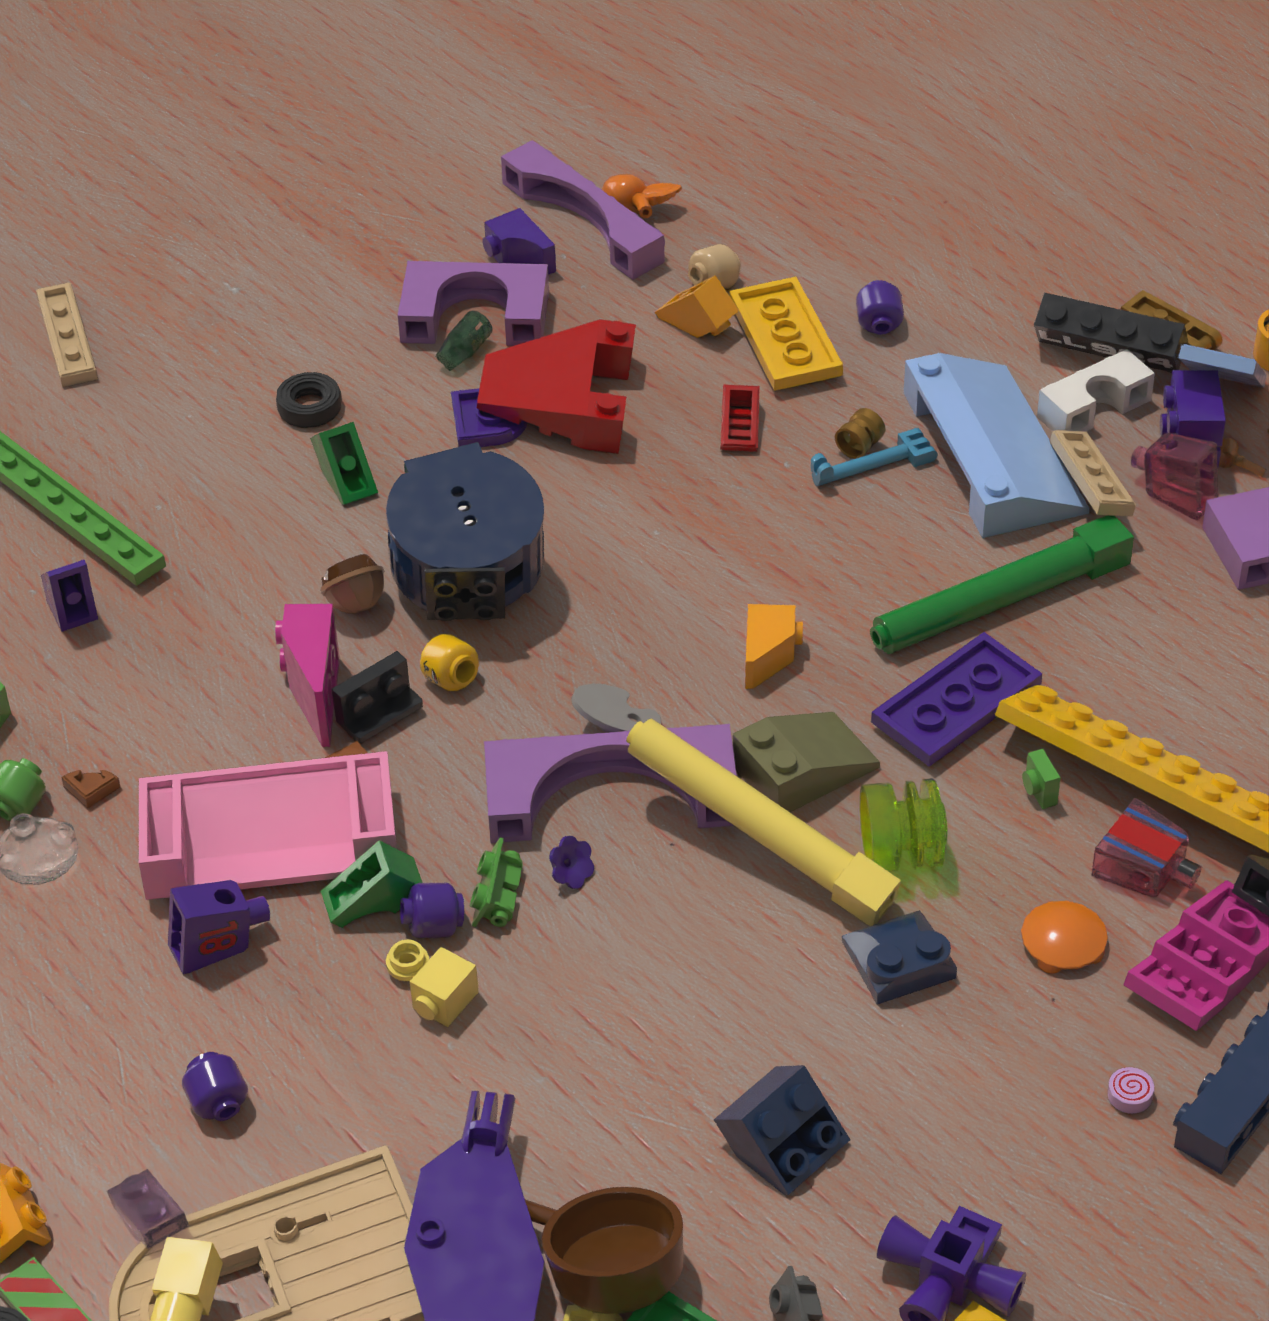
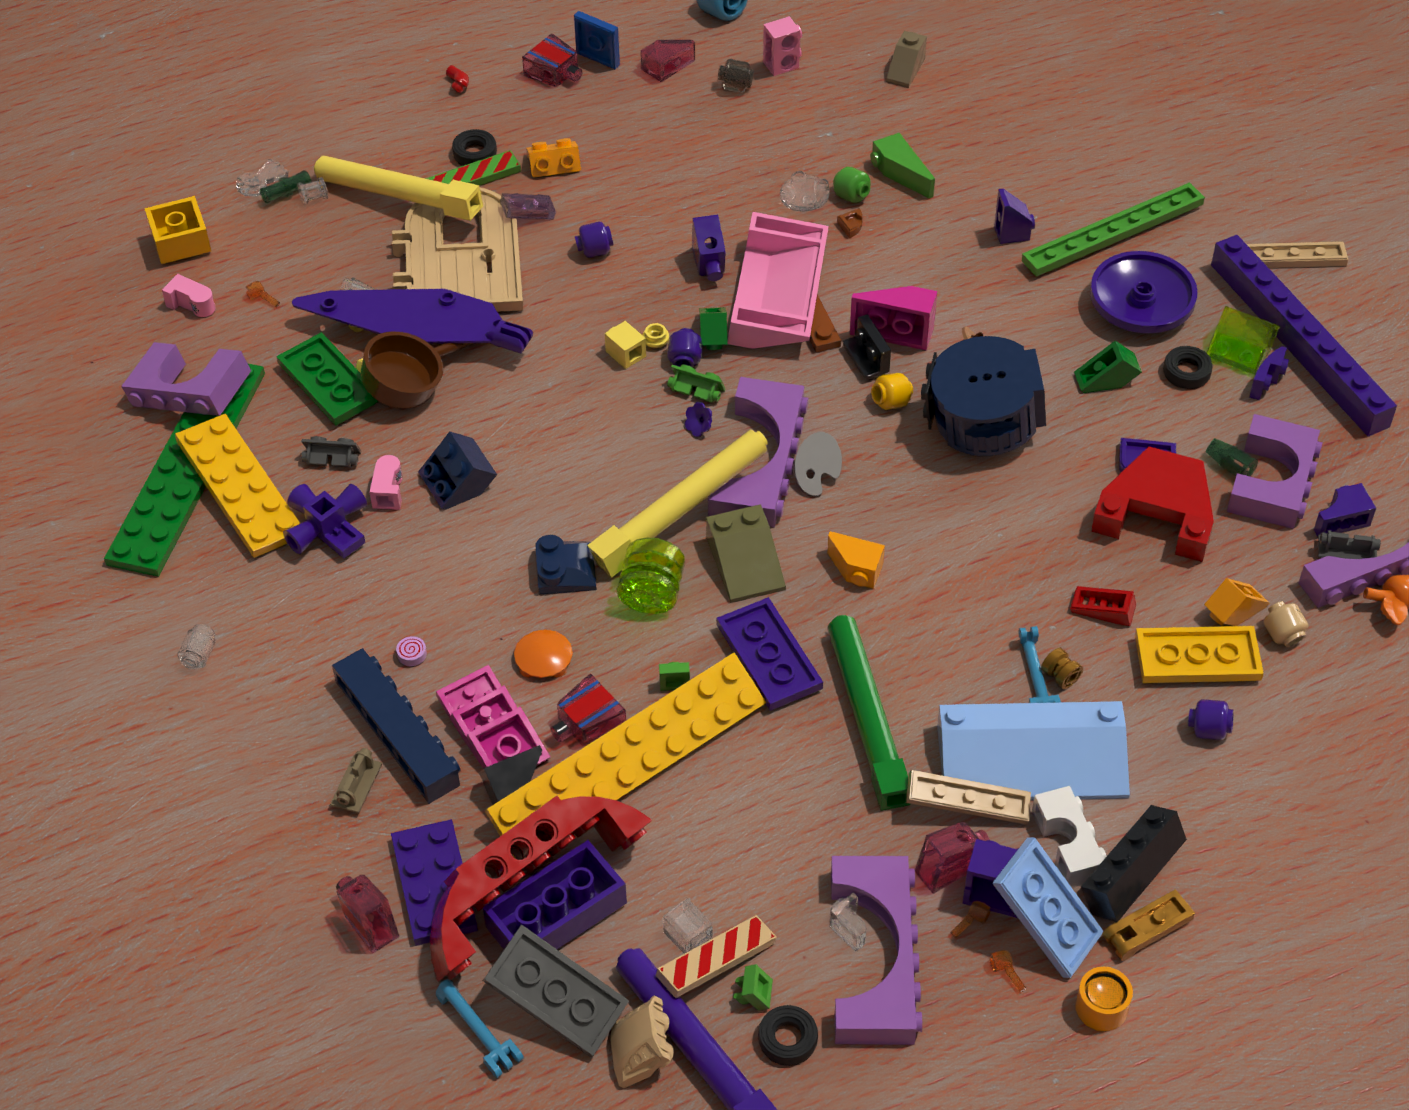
camera: 105 degrees right, 5 degrees up
(191, 442) = (1143, 292): none -> dark purple dish
(222, 305) = (1304, 336): none -> dark purple brick
(250, 351) = (1242, 340): none -> clear neon green slope
(303, 327) = (1269, 372): none -> dark purple slope
(572, 238) = (1342, 546): none -> dark grey hinge
(838, 1218) = (385, 484): none -> bright pink leg

